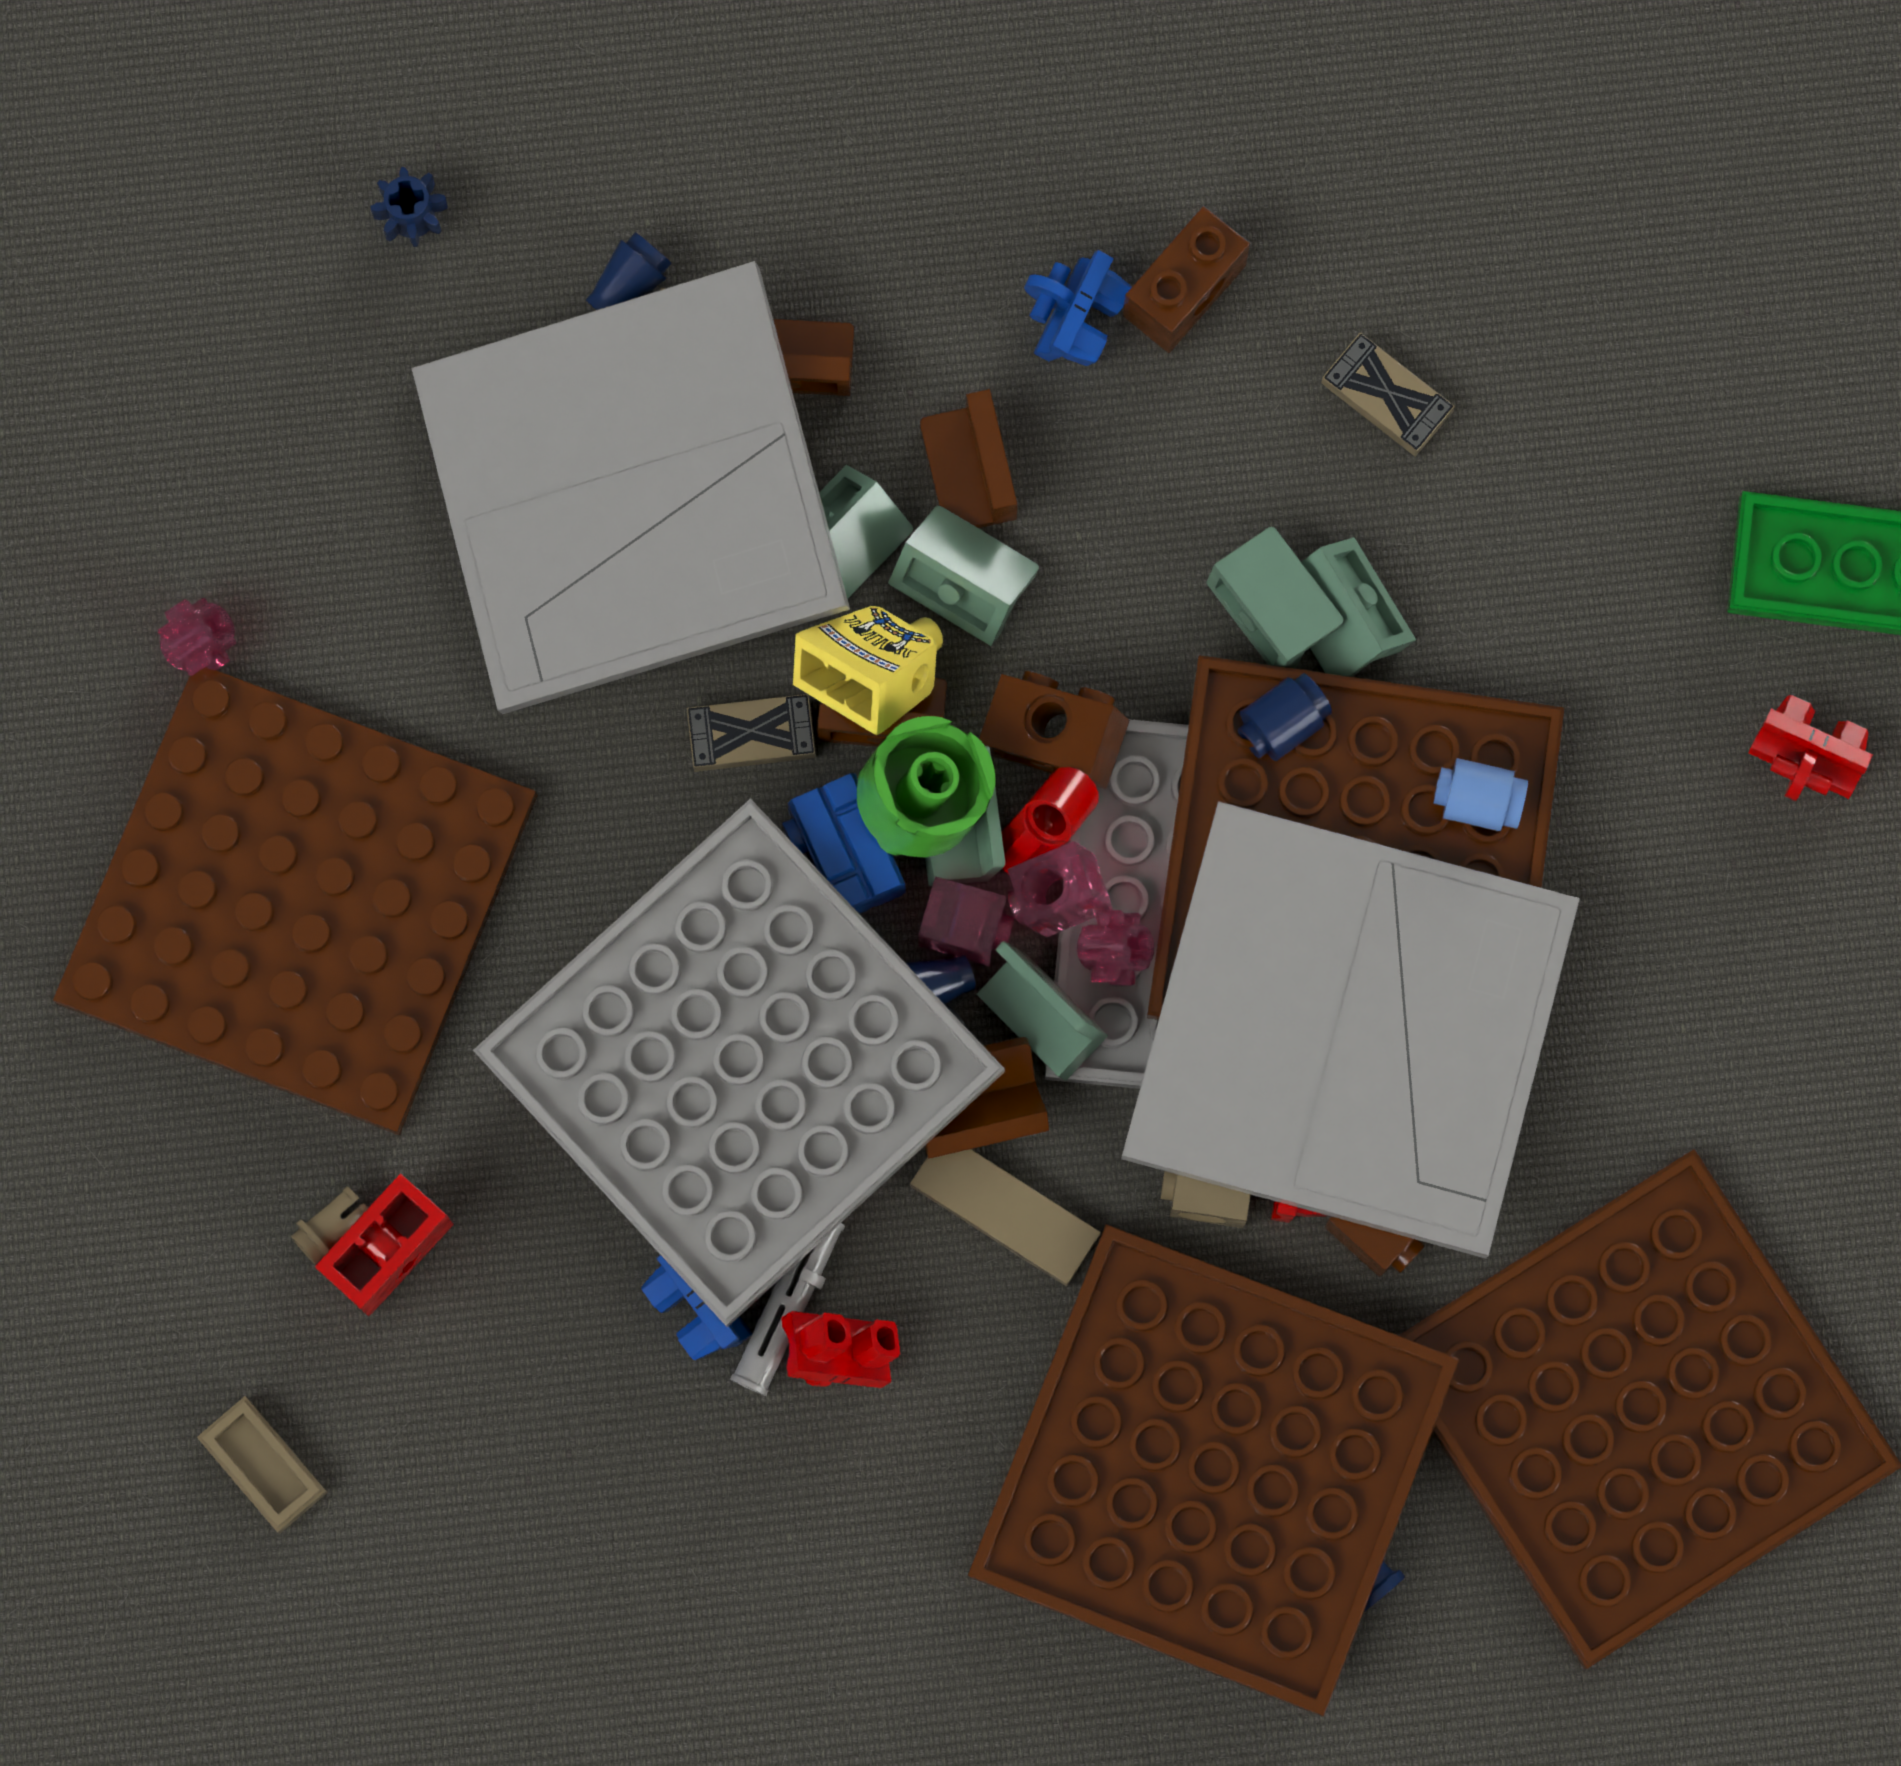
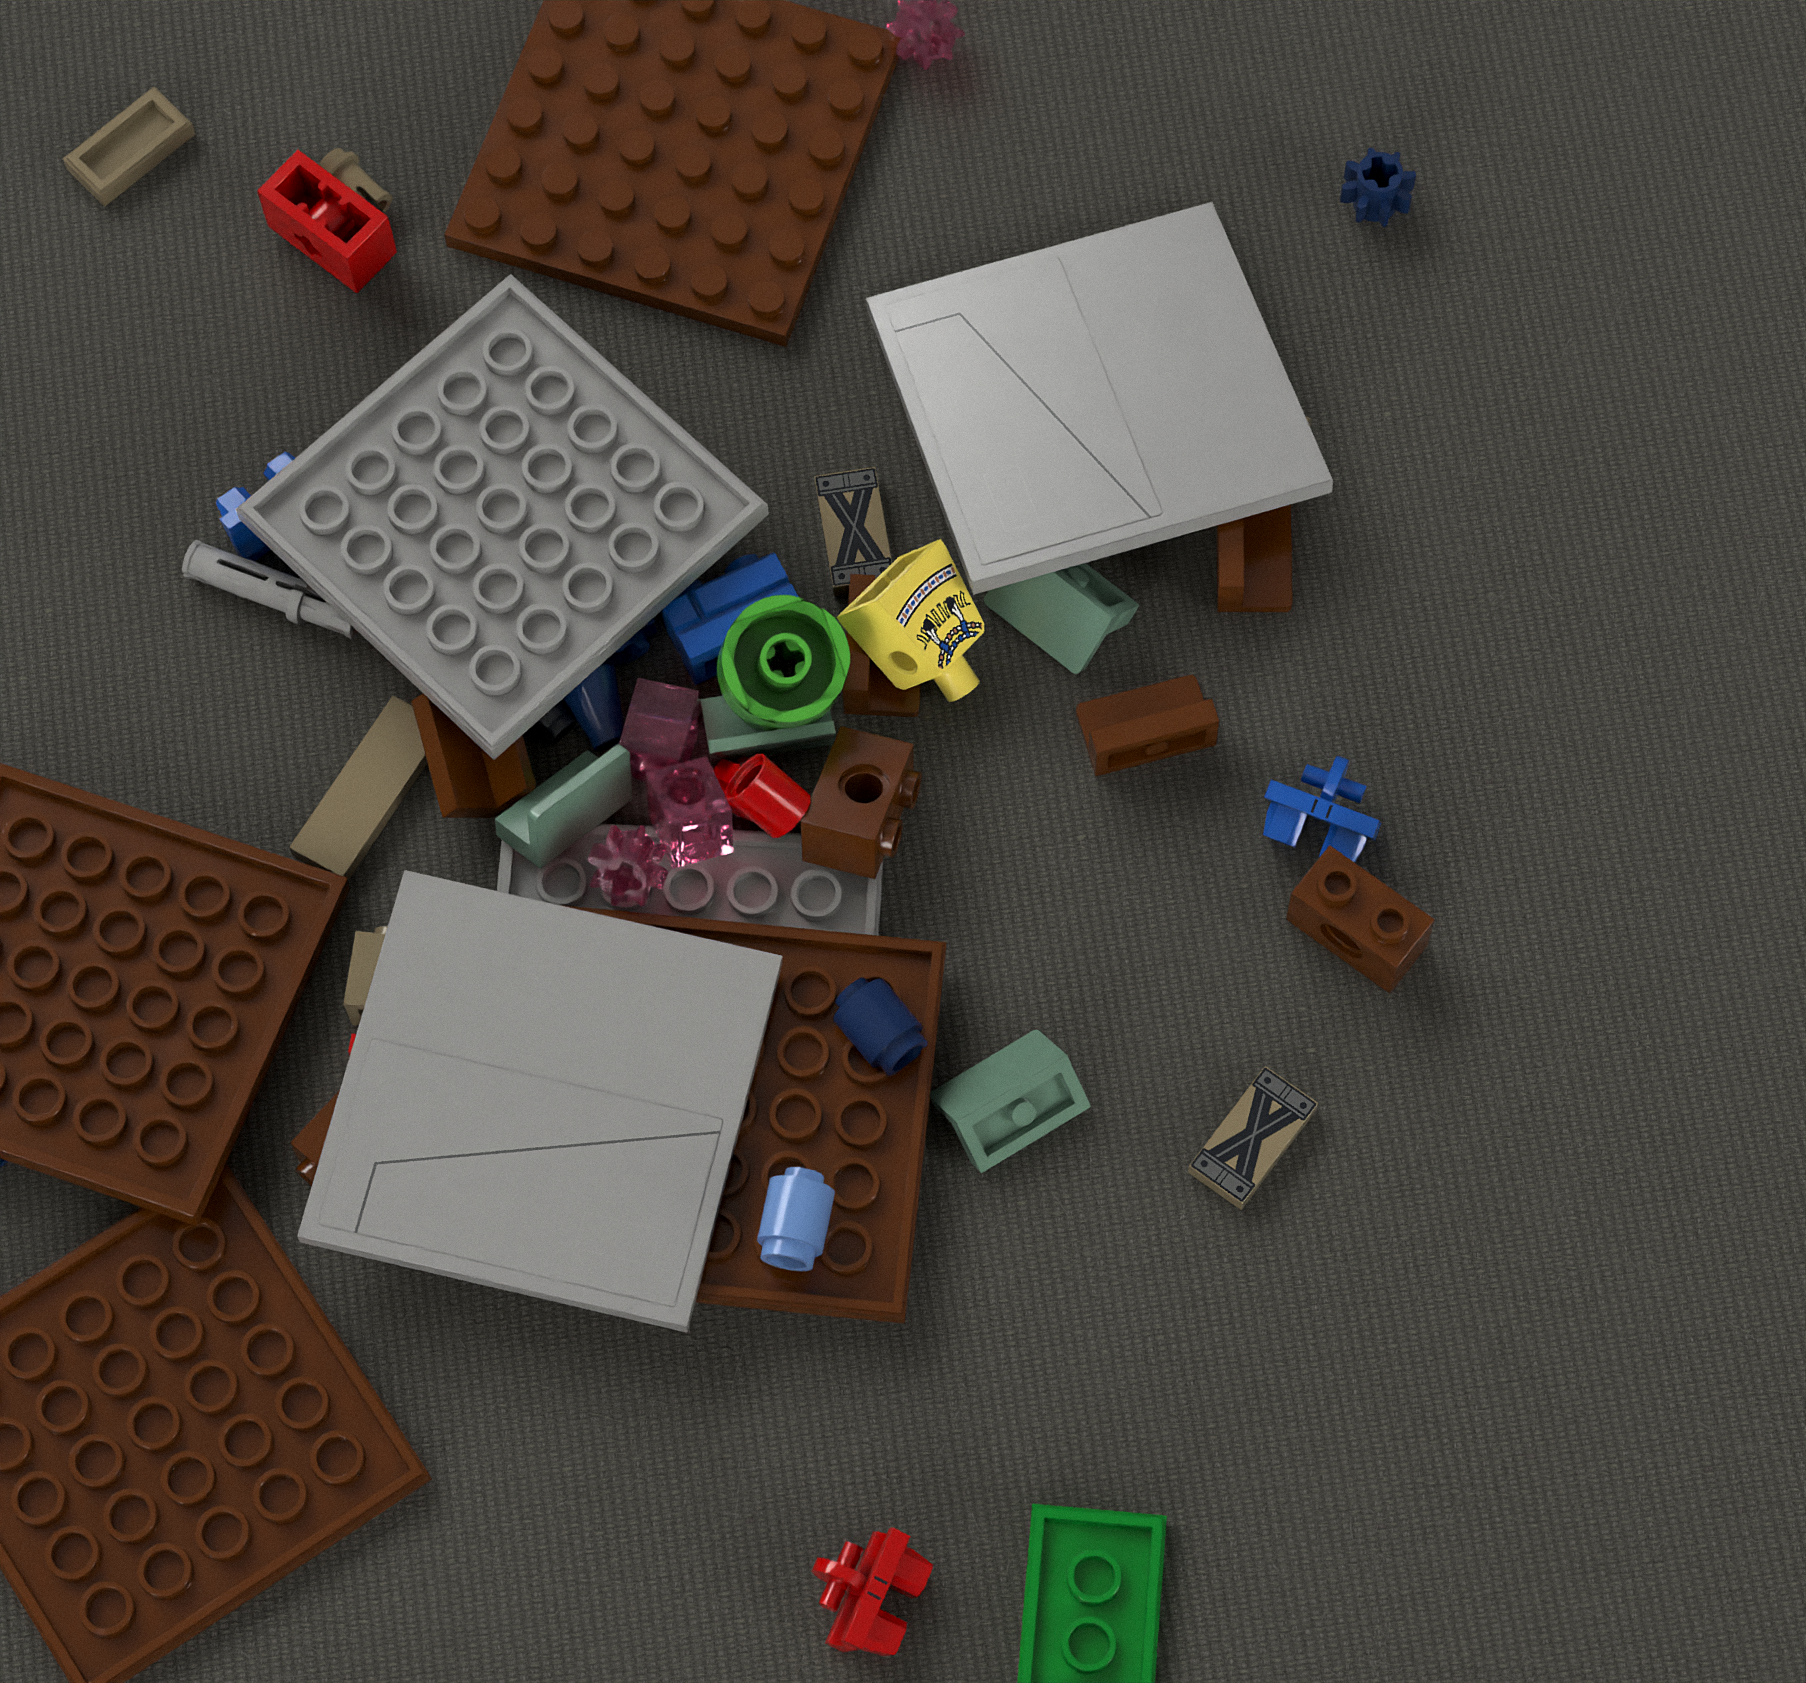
camera: 90 degrees right, 10 degrees down
(630, 273) = (1326, 392): dark blue cone -> none
(840, 1349) = (220, 626): red hips -> none
(962, 574) = (1030, 717): sand green panel -> none
(1273, 599) = (1012, 1018): sand green panel -> none

